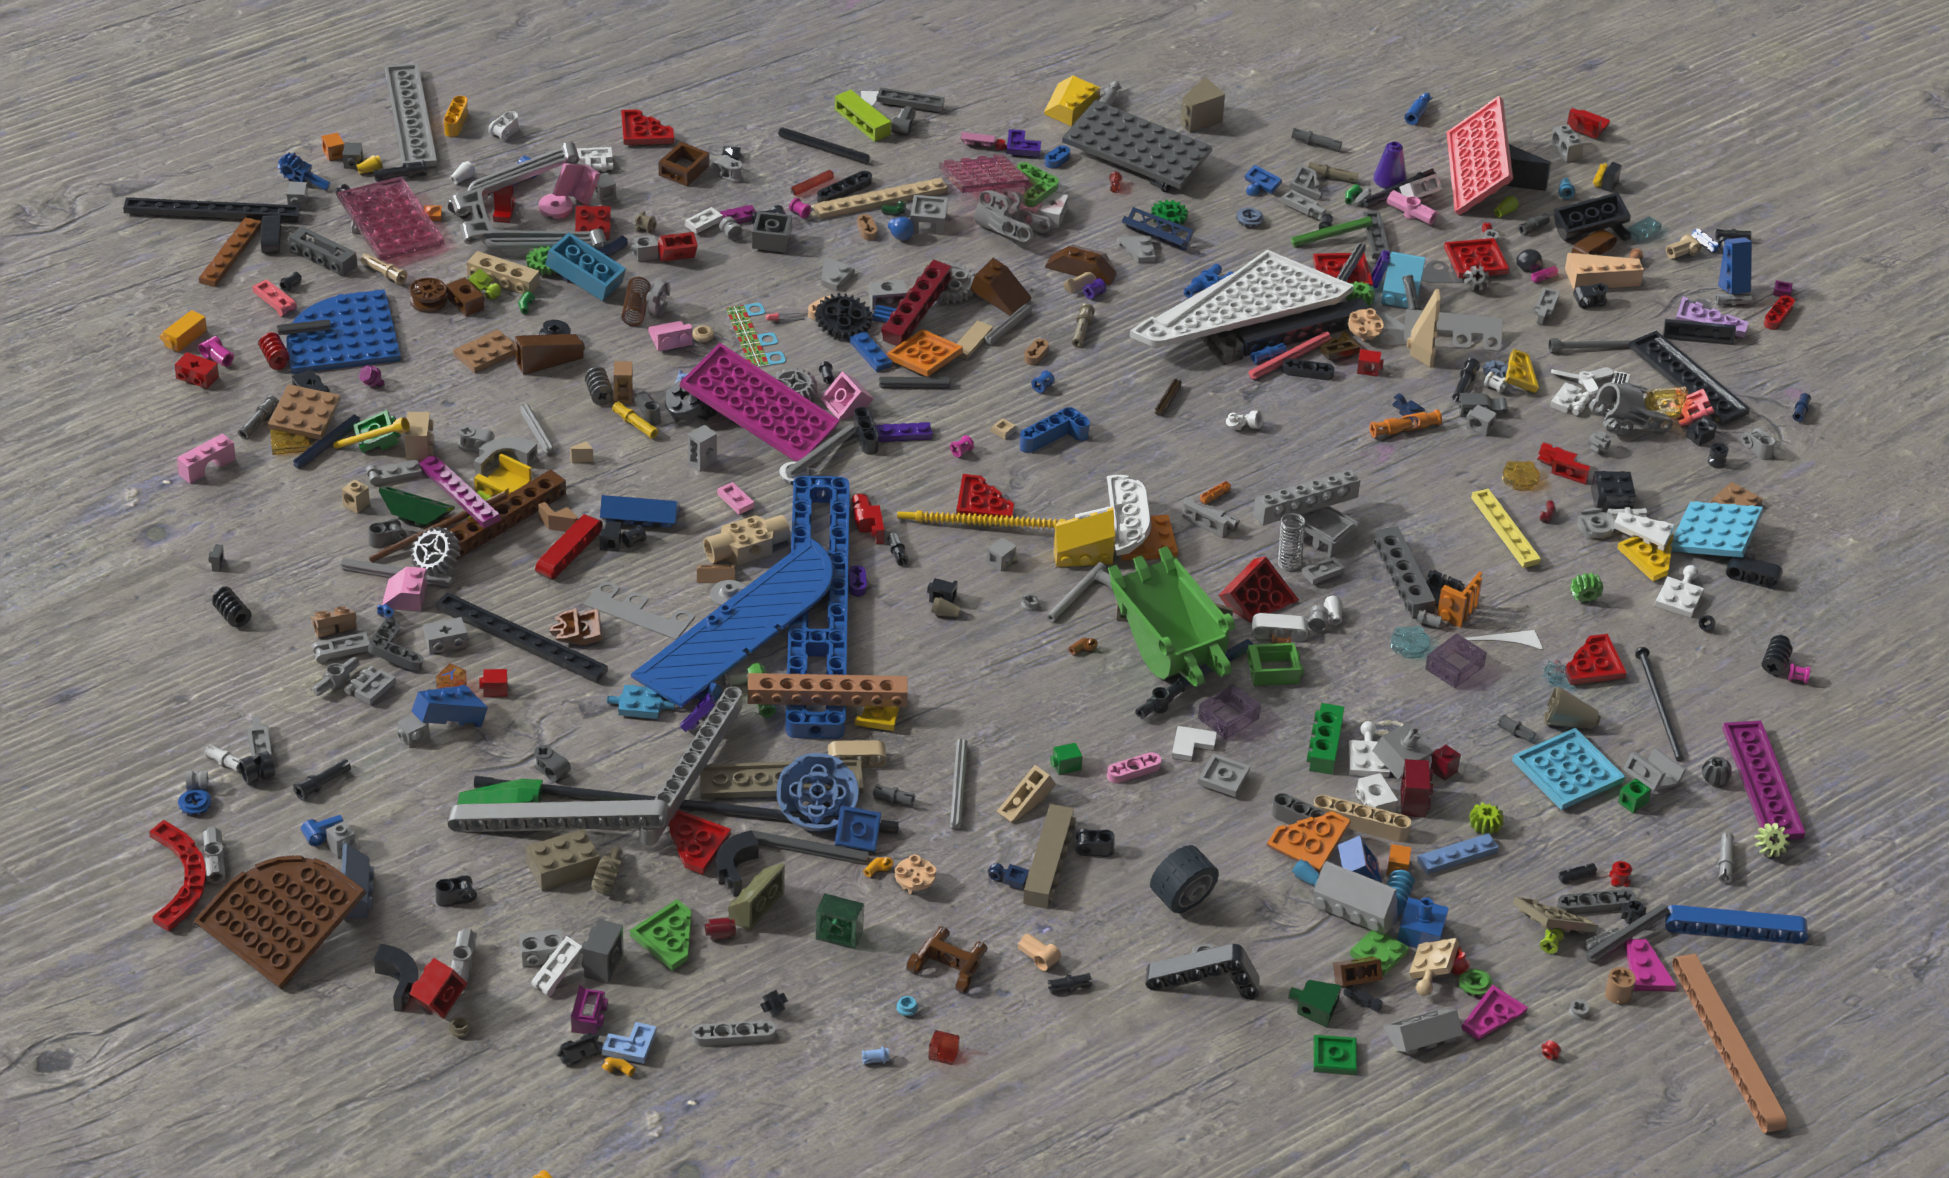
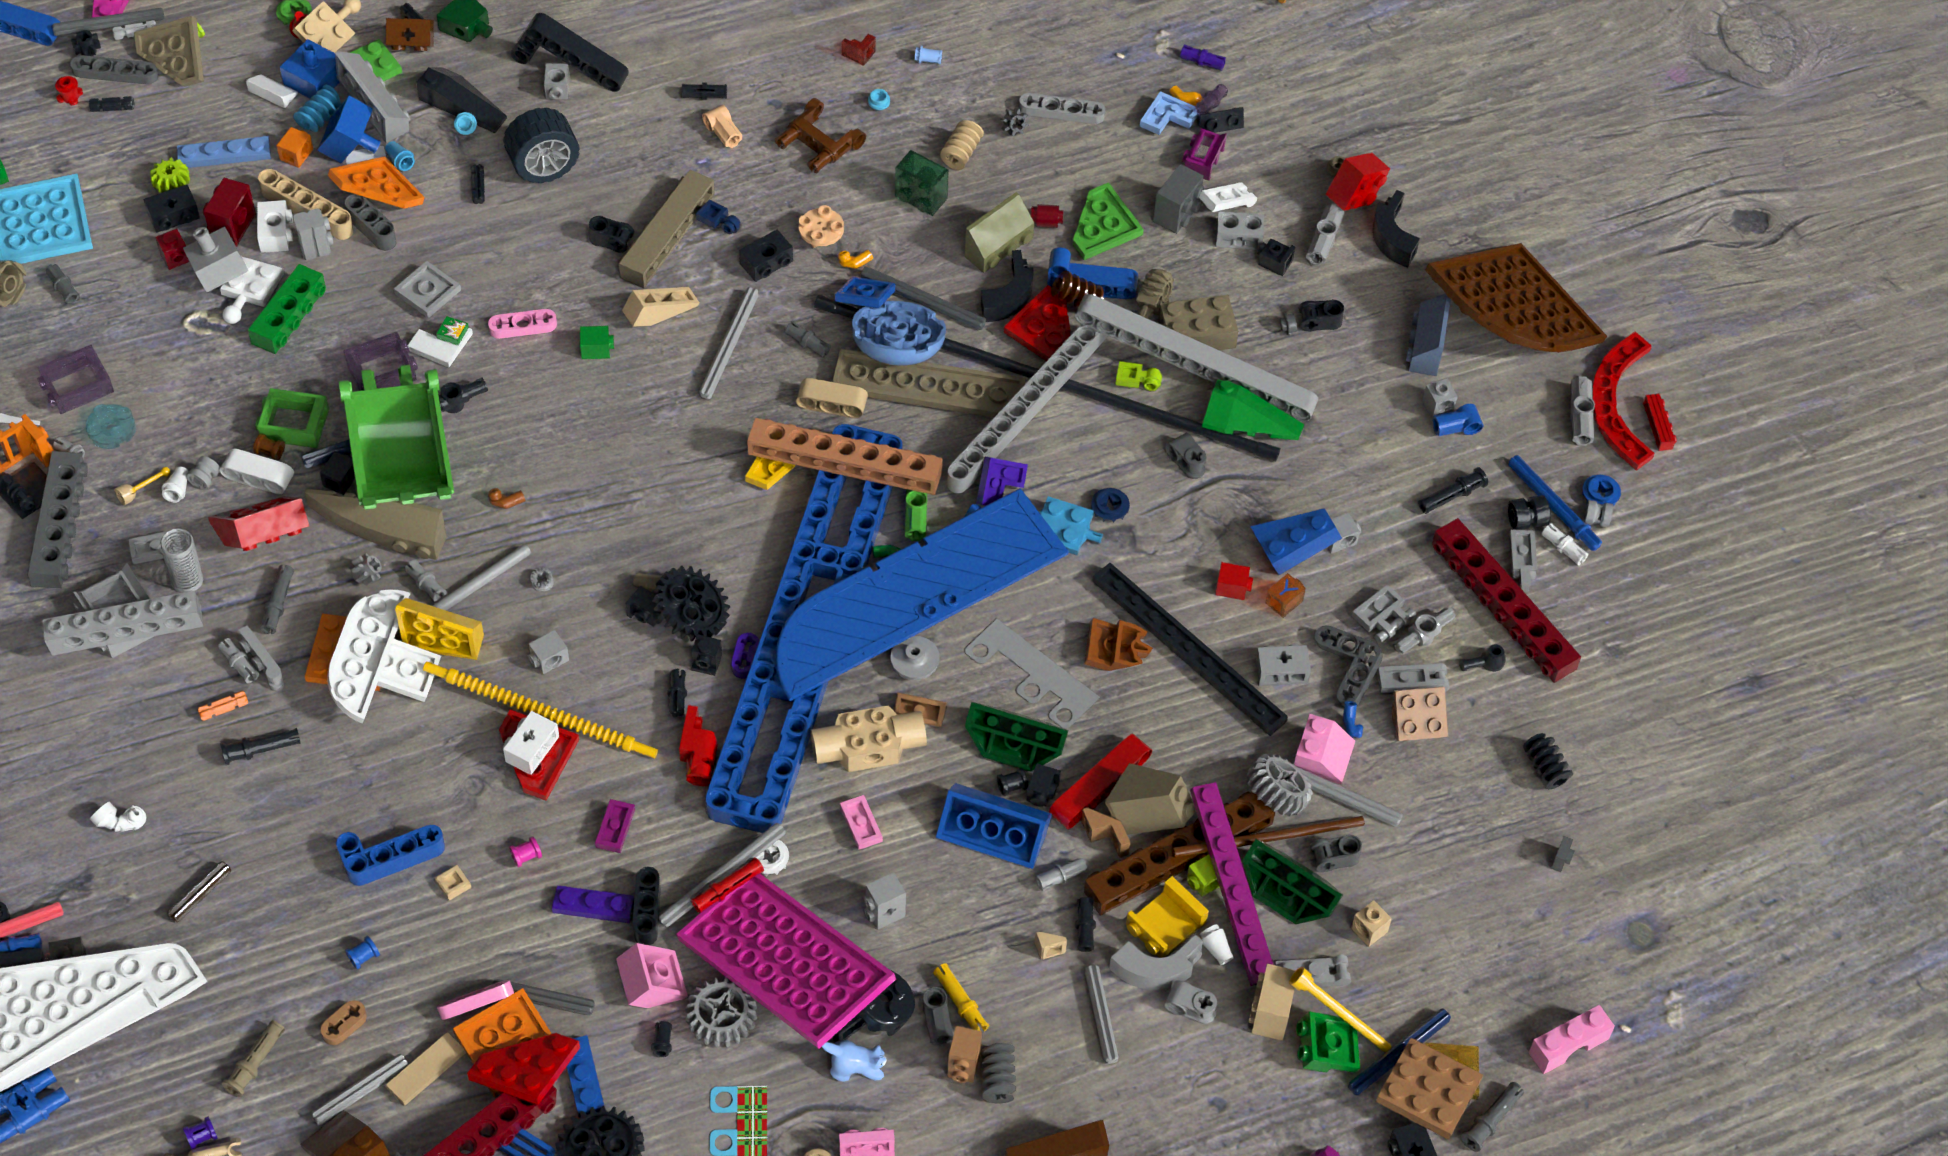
camera: 165 degrees left, 15 degrees up
(144, 863) = (1659, 422): none -> red piece
(235, 786) = (1556, 504): none -> blue axle
(272, 707) = (1518, 604): none -> dark red brick
(280, 673) = (1487, 659): none -> black bar
(464, 472) = (1216, 943): none -> white cone
(483, 881) = (1288, 323): none -> dark grey plate
(503, 933) = (1276, 256): none -> black brick
(527, 521) = (1150, 800): none -> dark tan slope
(559, 467) = (1085, 924): none -> black pin
(584, 494) = (1060, 873): none -> light grey axle
(592, 1059) = (1211, 99): none -> clear purple pin
(608, 716) = (1117, 499): none -> dark blue gear
(610, 1107) = (1203, 57): none -> dark purple pin
(637, 558) = (1014, 737): none -> dark green wedge
(668, 882) = (1116, 282): none -> blue beam
(674, 857) = (1074, 288): none -> reddish brown piece
(770, 661) = (884, 550): none -> green arm
(815, 973) = (961, 144): none -> tan piece
(818, 437) = (719, 890): none -> red pin
(886, 565) = (706, 655): none -> black brick
(906, 331) = (525, 1068): none -> red plate
(907, 469) = (615, 826): none -> magenta plate
(909, 590) = (690, 603): none -> black gear
(950, 369) = (475, 999): none -> bright pink beam
(954, 849) = (766, 255): none -> black brick
(986, 489) = (530, 742): none -> white brick
(1182, 470) = (247, 748): none -> black pin
(1185, 743) = (452, 330): none -> green tile
(1214, 550) = (274, 607): none -> dark grey pin
(1228, 867) = (478, 187): none -> black axle
(1266, 910) = (465, 123): none -> medium azure plate
(1289, 933) = (456, 95): none -> black wedge
(1338, 780) = (313, 233): none -> light grey brick
(1367, 599) = (127, 493): none -> hinge
(1459, 909) = (271, 90): none -> white slope
(1467, 793) = (171, 208): none -> black brick

